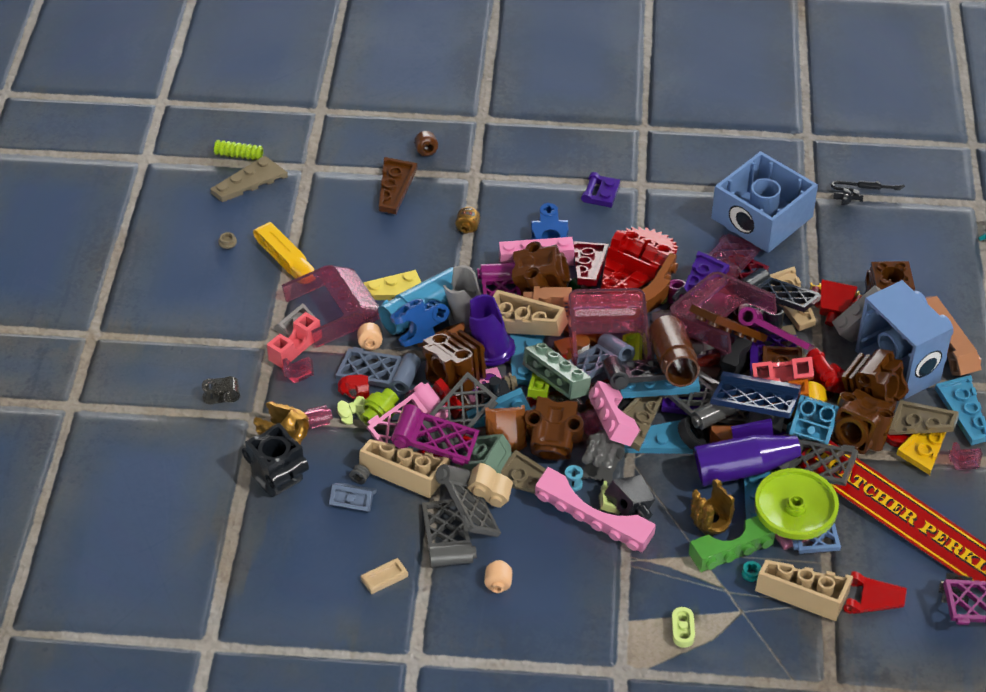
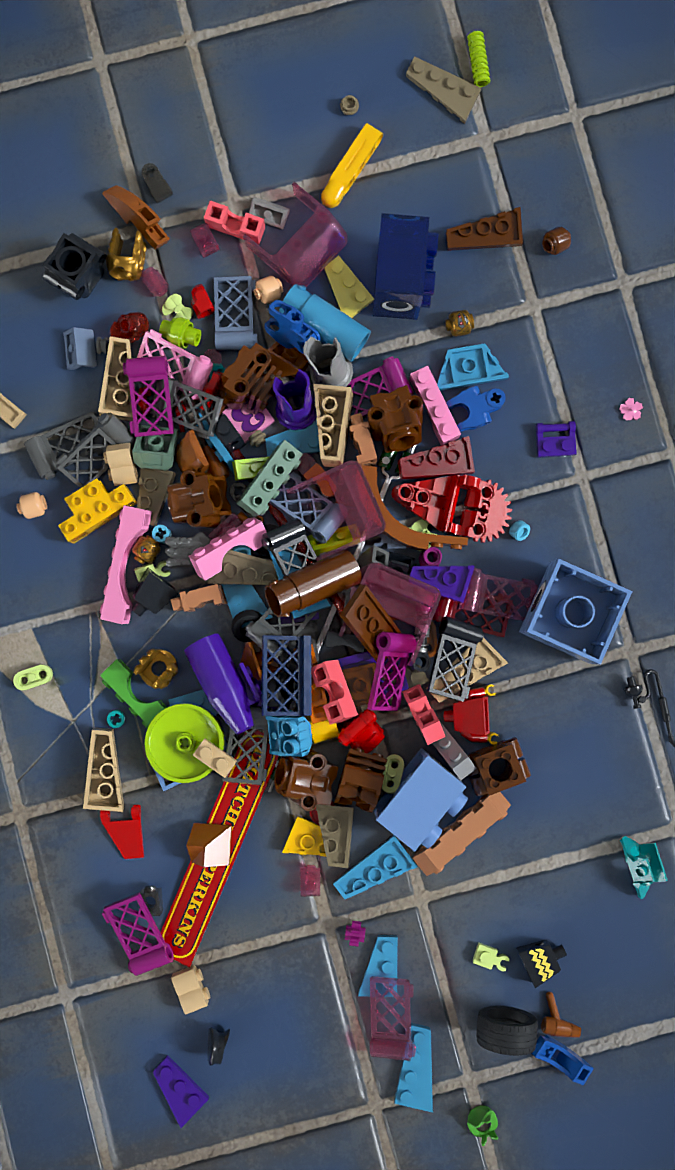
camera: 70 degrees right, 40 degrees up
(237, 410) = (139, 213): none -> dark orange slope
(351, 443) = (130, 326): none -> clear red head
(405, 227) = (402, 260): none -> clear blue brick
(510, 222) = (470, 367): none -> dark azure wing
(525, 524) = (93, 508): none -> yellow piece
(586, 491) = (146, 549): none -> pearl gold head
(595, 141) = (631, 409): none -> bright pink plant
(653, 458) = (199, 598): none -> nougat hips
(675, 229) = (519, 530): none -> medium azure tile
(819, 477) = (215, 758): none -> tan plate
(837, 314) = (423, 714): none -> coral arch
(907, 522) = (210, 844): none -> dark orange slope

